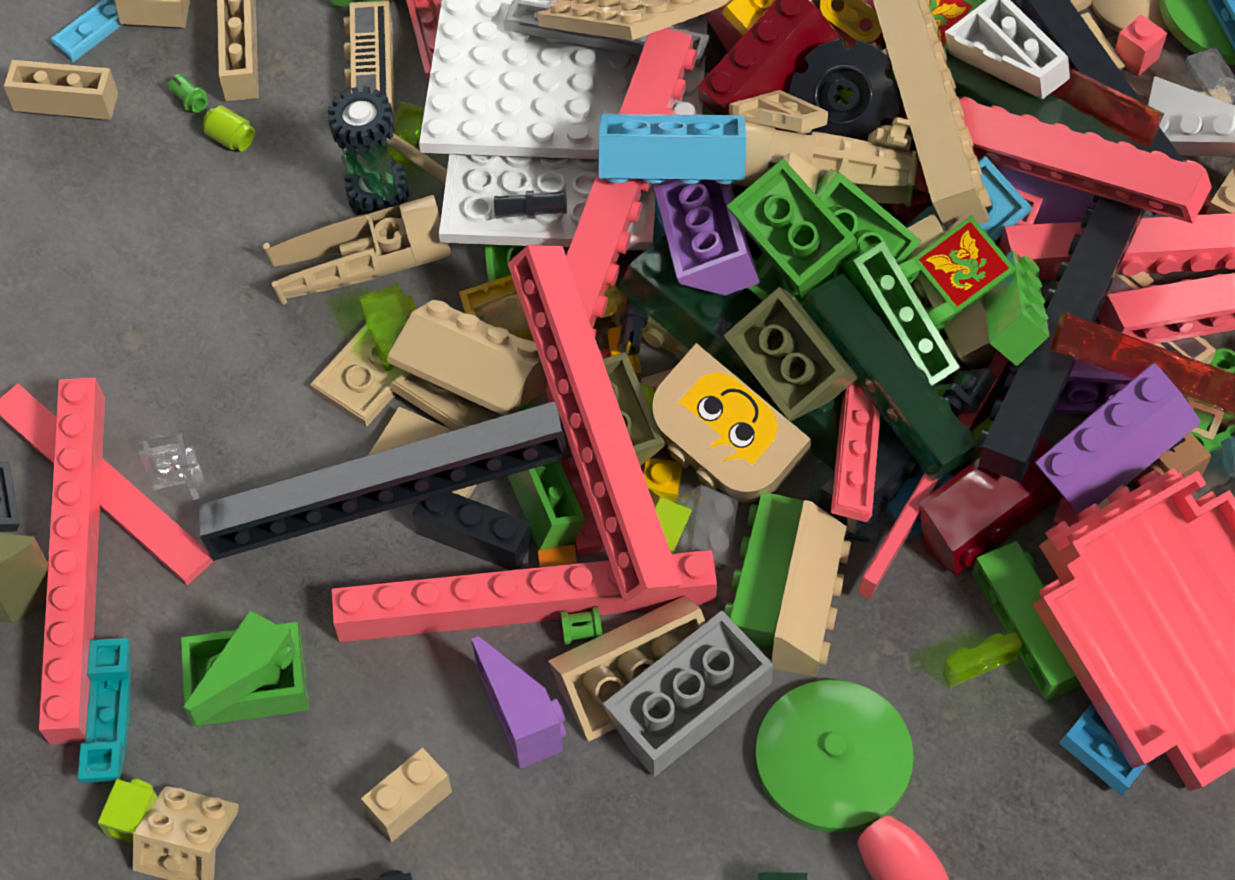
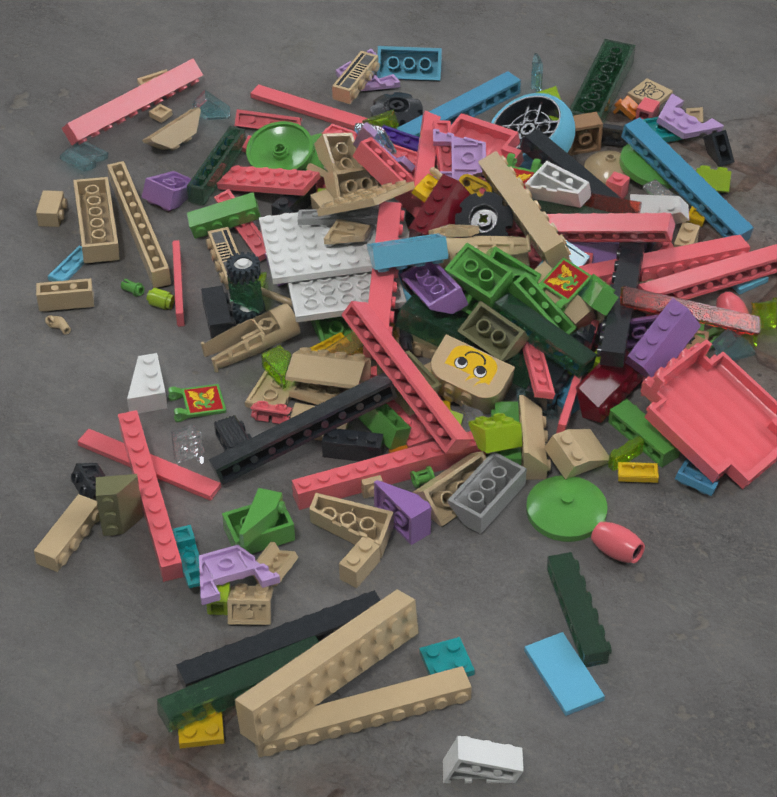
camera: 15 degrees left, 15 degrees down
(38, 143) = (59, 323): none -> tan arm
(145, 315) = (147, 386): none -> white wedge
(150, 758) = (229, 565): none -> lavender wing
(232, 364) = (198, 401): none -> flag
(248, 762) = (277, 560): none -> tan bracket
(262, 453) = (230, 432): none -> black brick
(269, 102) = (178, 283): none -> coral tile
(317, 179) = (217, 310): none -> black brick
(336, 412) = (262, 410): none -> coral hinge
(424, 705) = (352, 520): none -> tan wedge
(483, 624) = (367, 486): none -> tan plate
(530, 204) = (339, 294): black pin -> none
(582, 69) = (347, 232): none -> tan wing
(736, 574) = (496, 433): none -> lime slope
(886, 641) = (576, 452): none -> tan slope
(892, 135) = (515, 230): tan plate -> none
(993, 706) = (637, 472): none -> yellow plate

